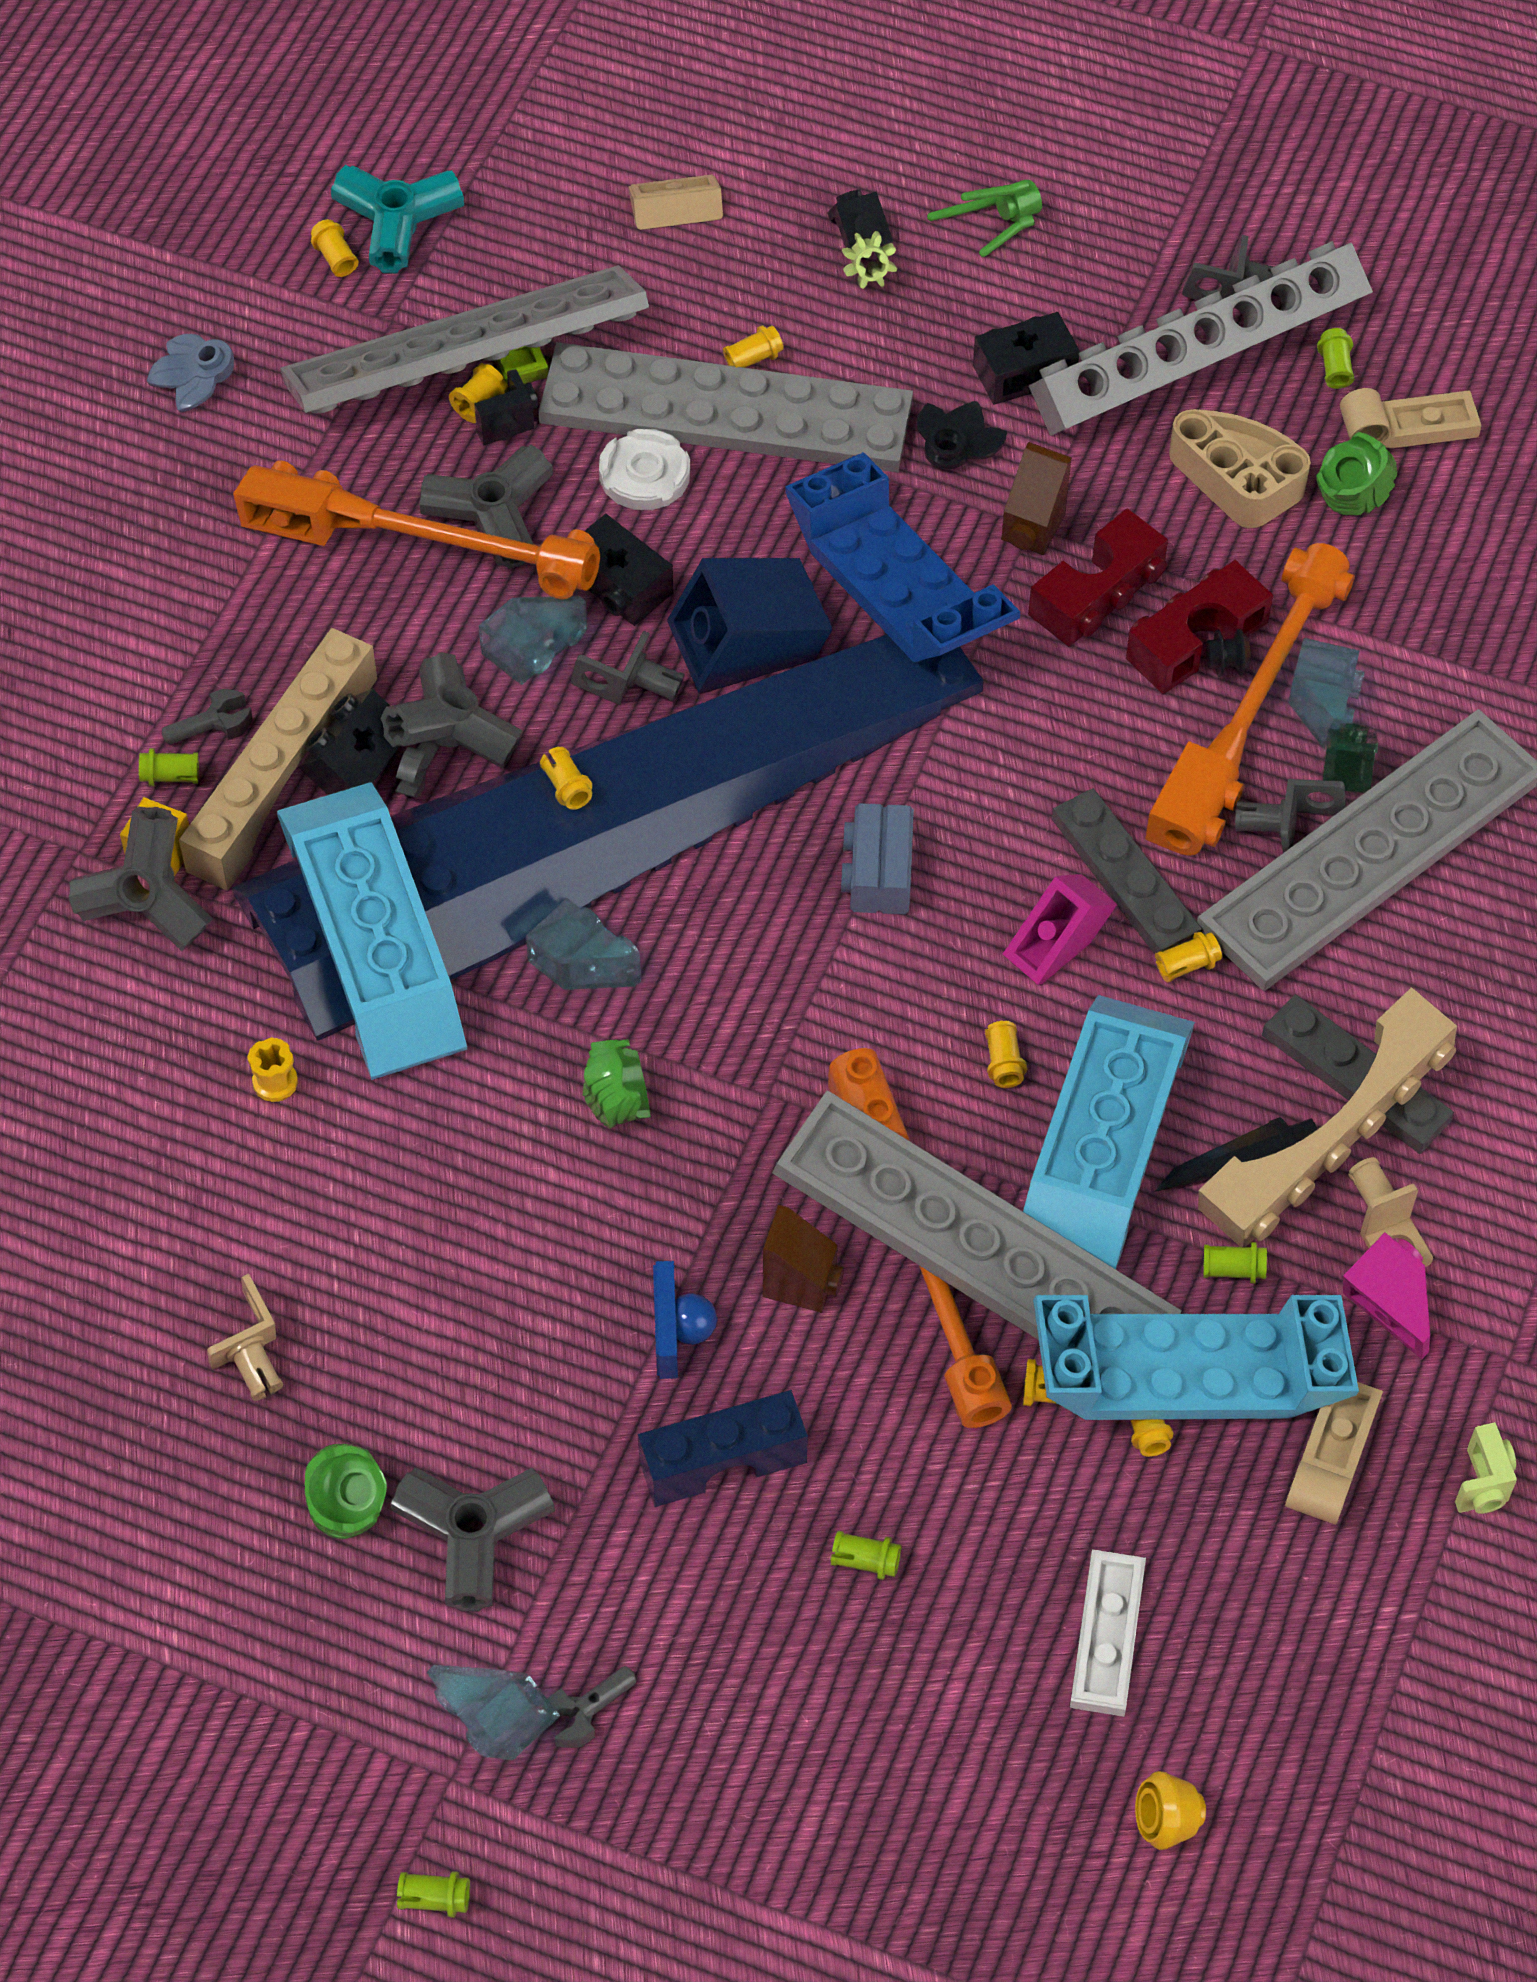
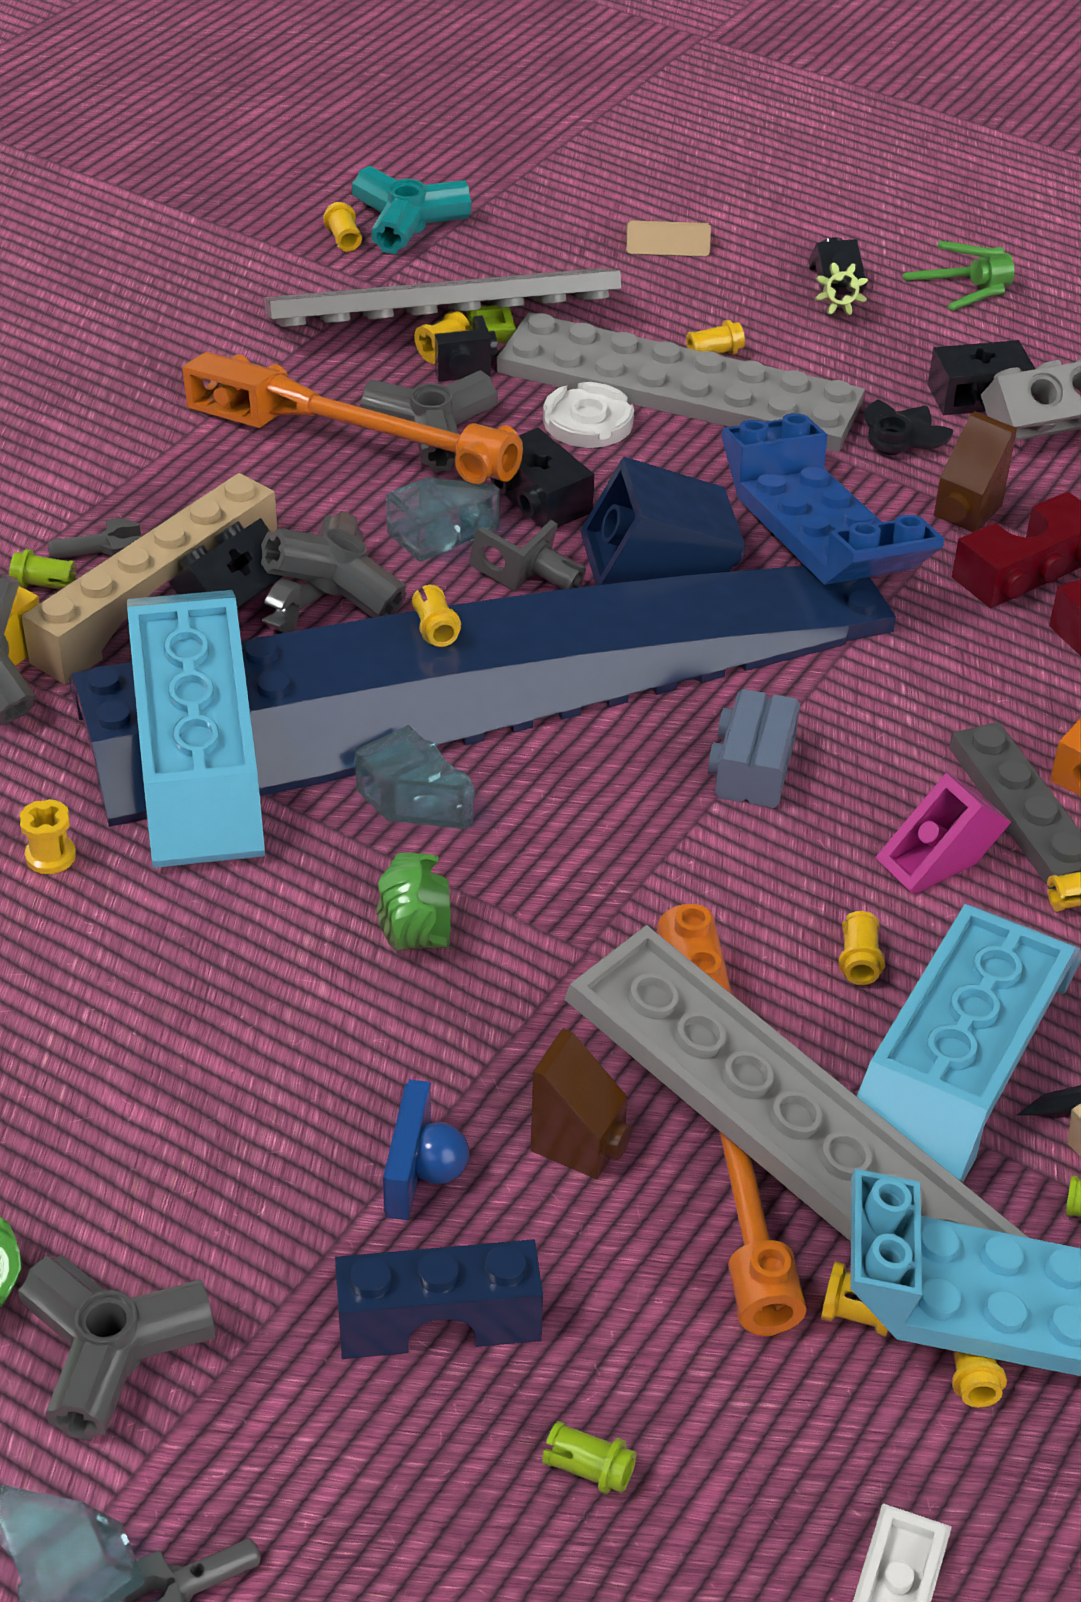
camera: 10 degrees right, 15 degrees down
(192, 369) = (184, 290): sand blue plate -> none

